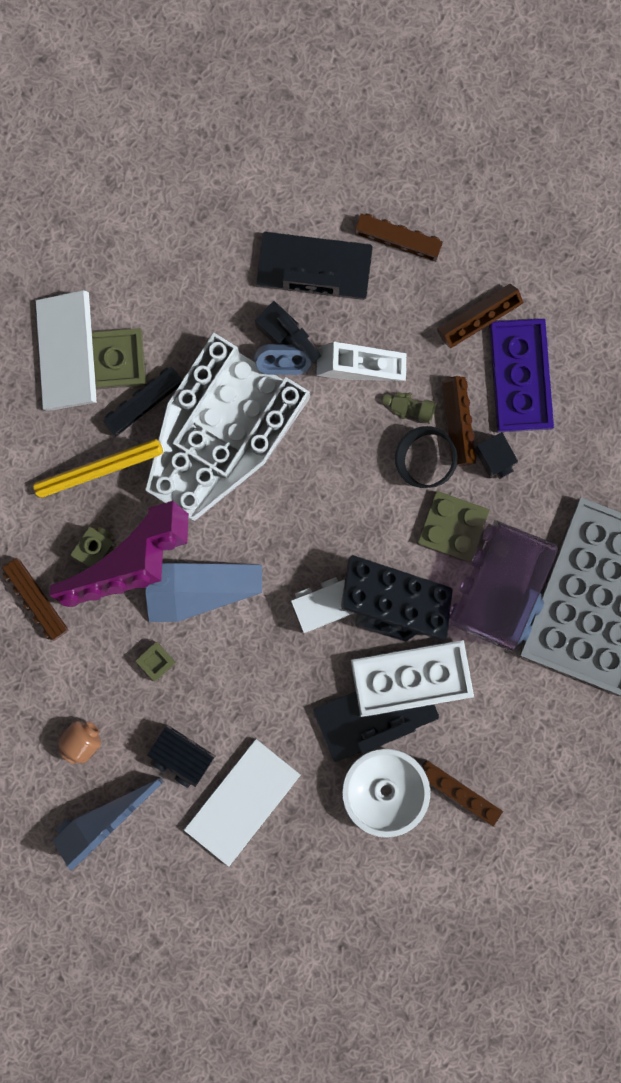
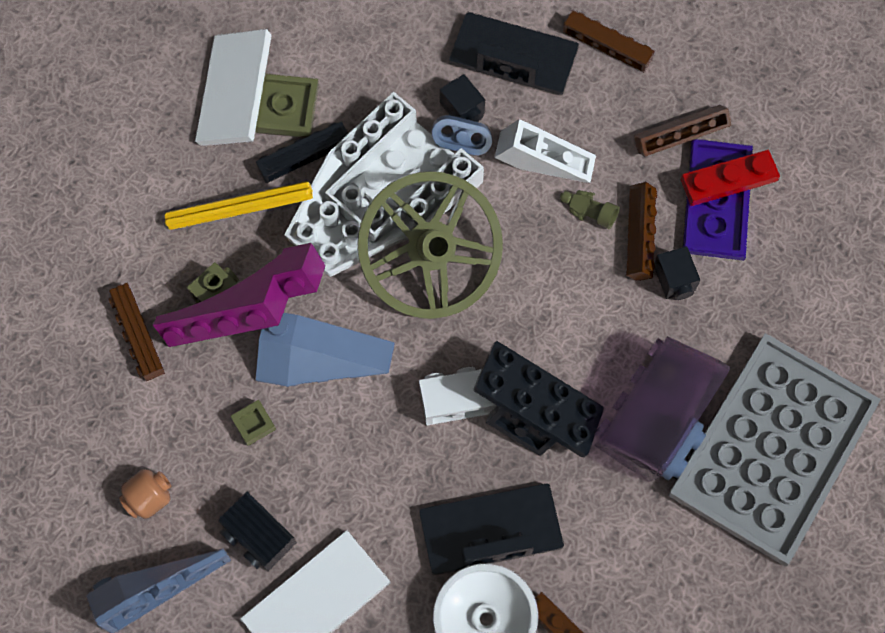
camera: 10 degrees right, 15 degrees down
(276, 476) = (430, 244): none -> olive wheel
(299, 337) = (483, 112): black bar -> none
(404, 445) = (588, 236): black tyre -> none
(412, 678) = (540, 494): white tile -> none
(453, 526) = (616, 341): olive plate -> none
(529, 355) = (730, 177): none -> red plate

